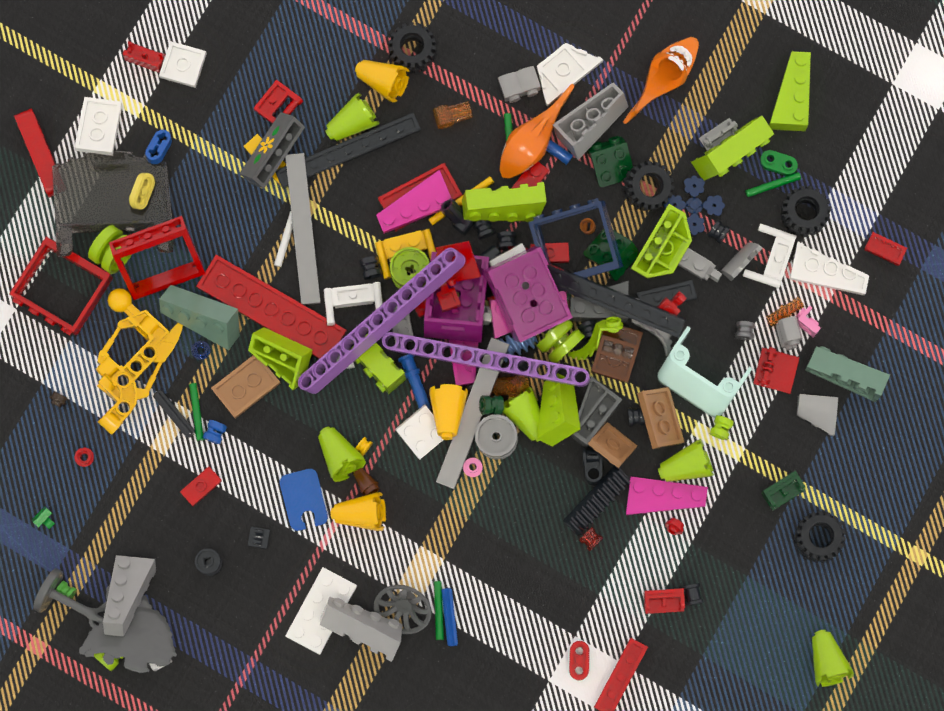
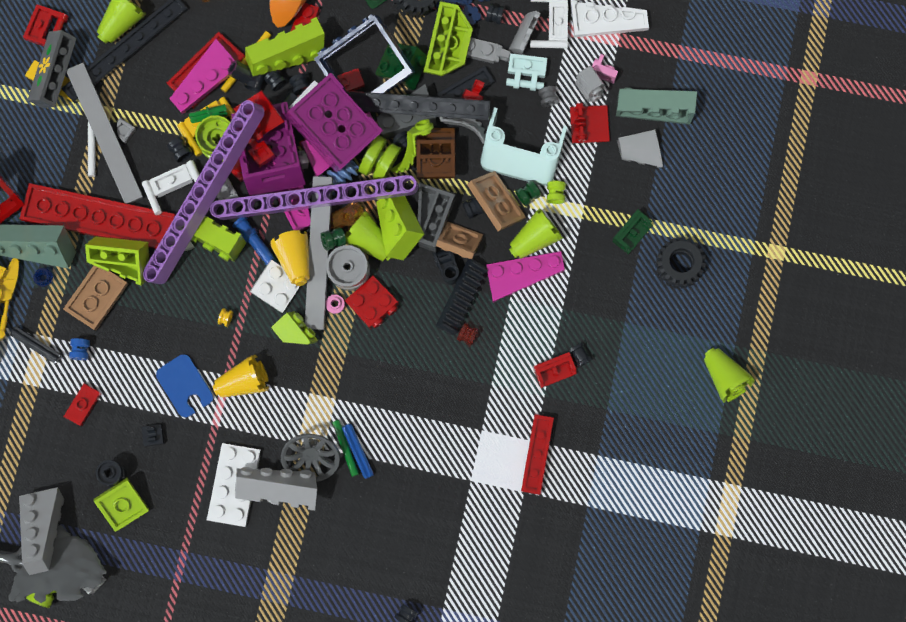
camera: 15 degrees left, 0 degrees up
(196, 411) = (56, 336): green bar -> none
(209, 595) = (121, 504): none -> lime plate
(323, 231) = (125, 130): none -> light grey tile
(339, 454) = (205, 332): lime cone -> none
(366, 482) = (238, 350): reddish brown cone -> none
(404, 242) = (198, 116): none -> green axle
(424, 480) = (293, 330): none -> lime slope
(509, 478) = (372, 303): none -> red plate
(579, 660) = (493, 452): red plate -> none
(584, 226) = (368, 49): dark orange hinge -> none
(674, 526) = (542, 297): red plate -> none
(694, 419) = (528, 193): none -> dark green wheel
(733, 293) = (526, 66): none -> light aqua plate
(785, 311) = (583, 63): clear orange pin -> none

